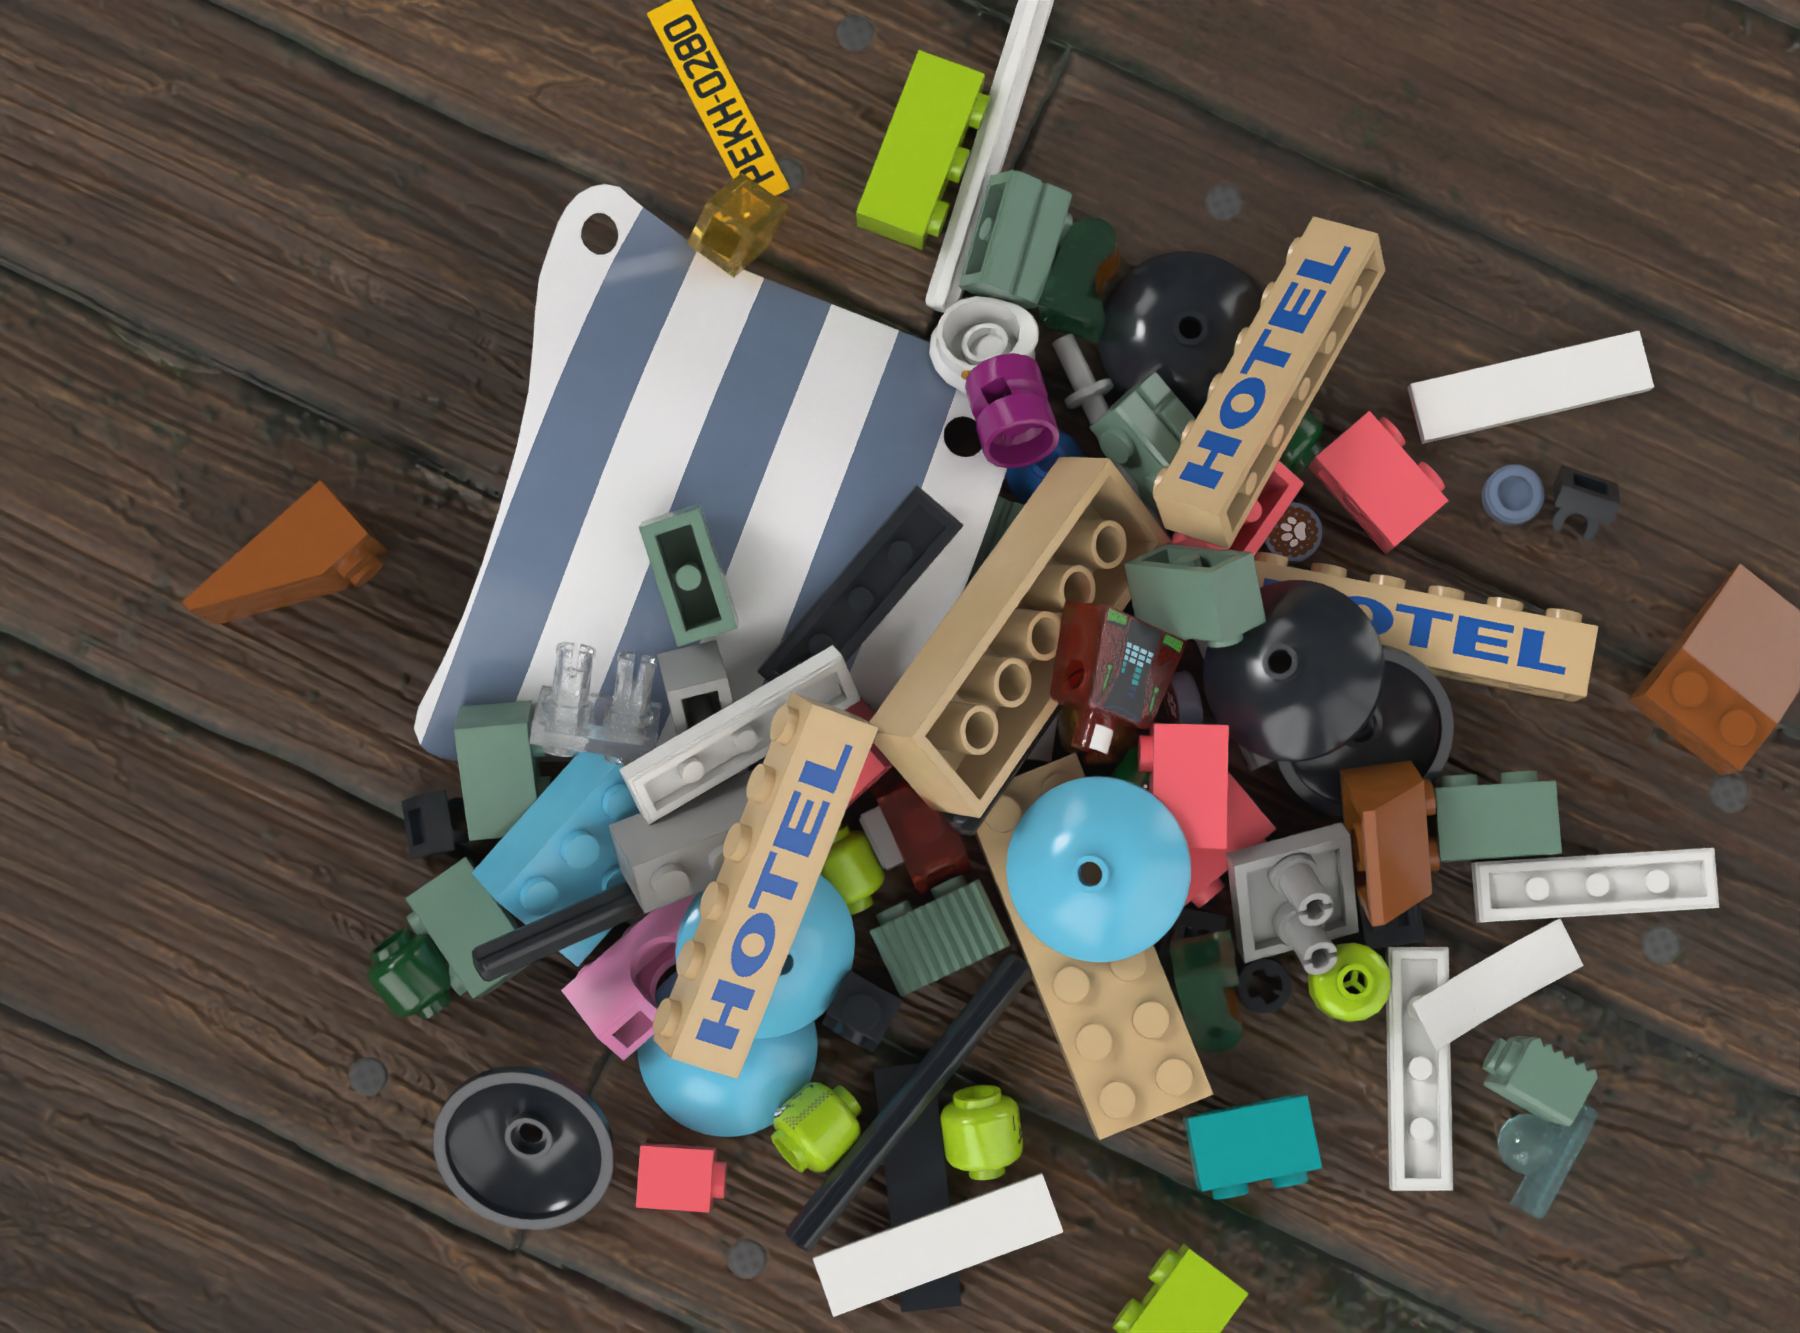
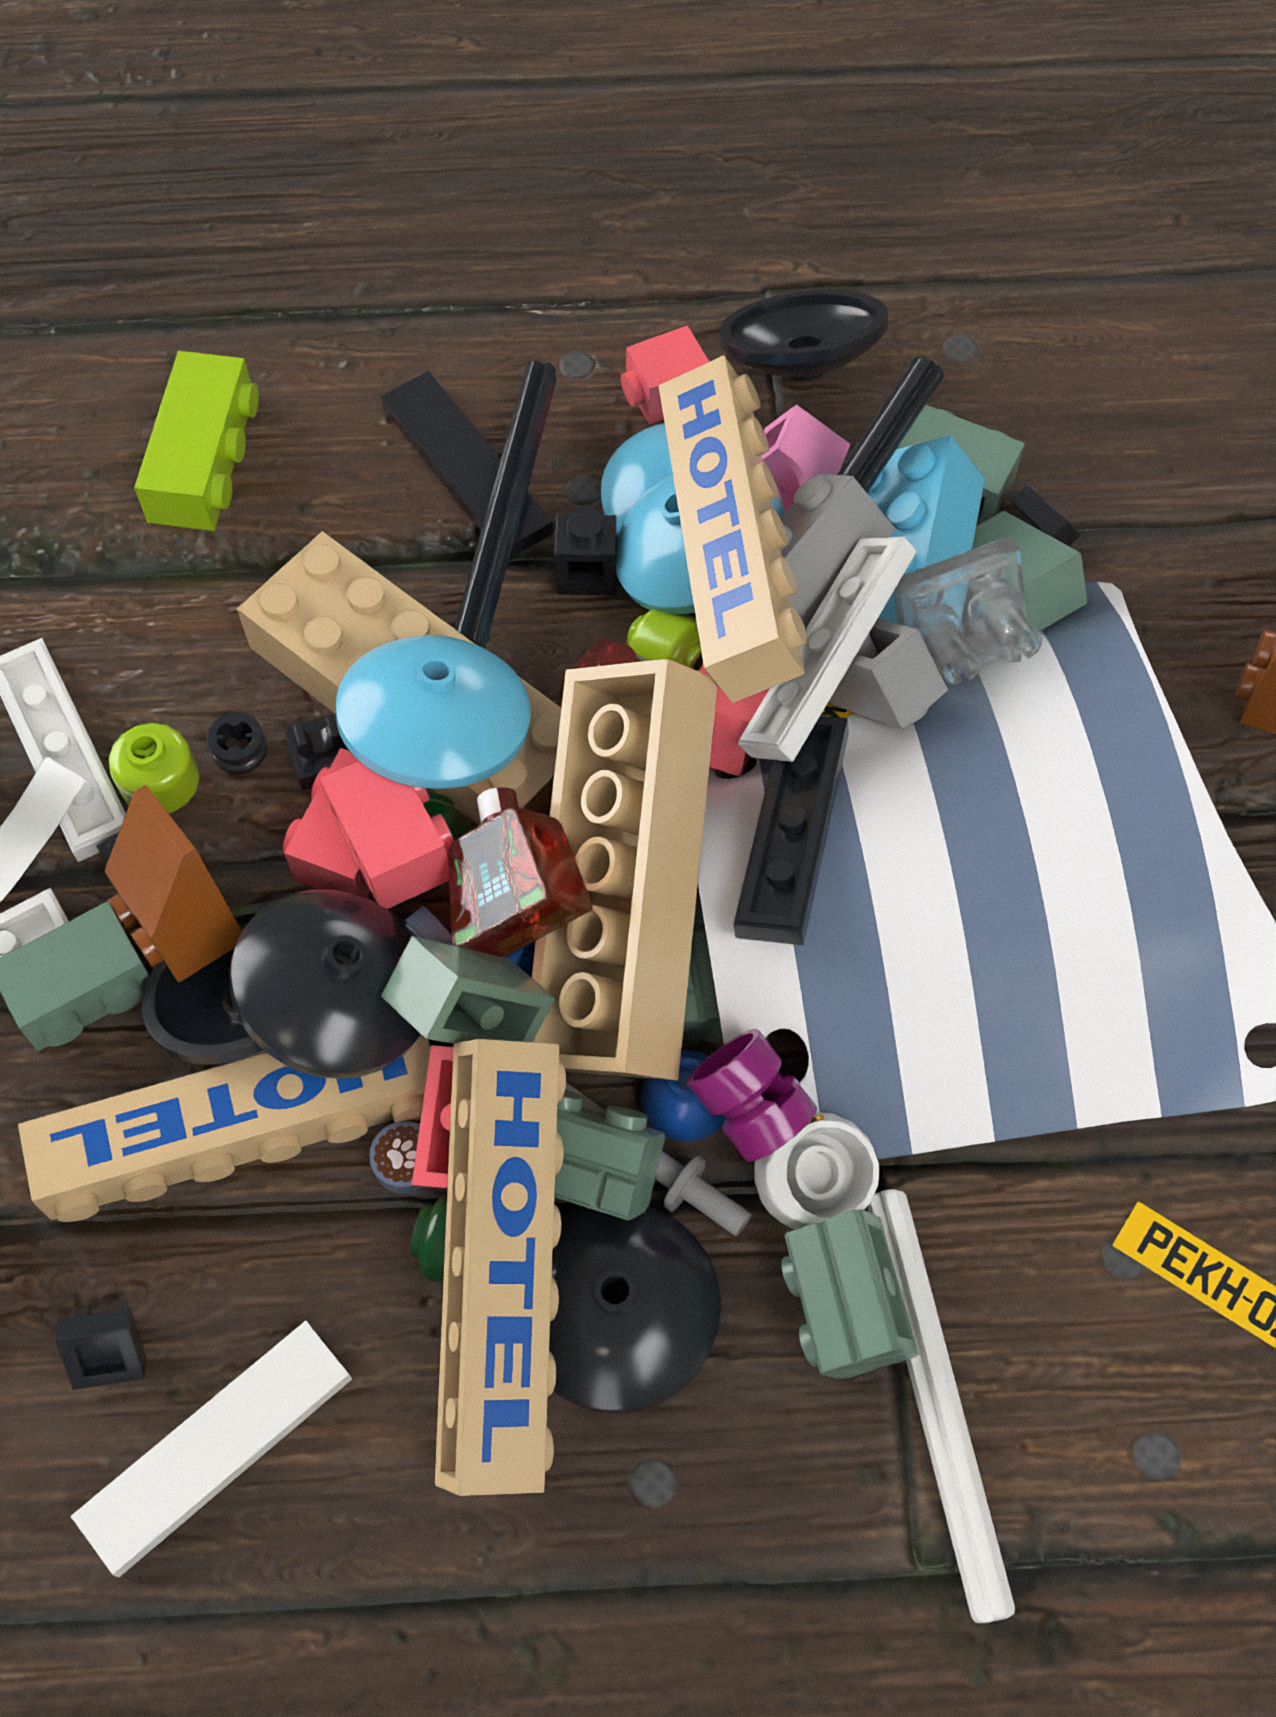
camera: 150 degrees right, 20 degrees down
(410, 974) = (983, 401): dark green head -> none
(689, 574) = (966, 736): sand green brick -> none
(737, 224) = (1140, 1156): clear yellow brick -> none
(817, 1127) = (574, 456): lime head -> none
(923, 151) = (1005, 1346): lime brick -> none
(937, 1244) = (421, 421): white tile -> none
(938, 936) = (554, 630): sand green brick -> none
(981, 1131) = (431, 514): lime head -> none
(1077, 278) = (762, 1294): clear green leg -> none
(1204, 981) = (286, 693): clear green leg -> none
(1252, 1144) = (184, 611): teal brick -> none
(1294, 896) = (239, 804): light grey plate -> none
(1379, 481) = (334, 1247): coral brick -> none
(1512, 495) = (185, 1318): sand blue tile -> none

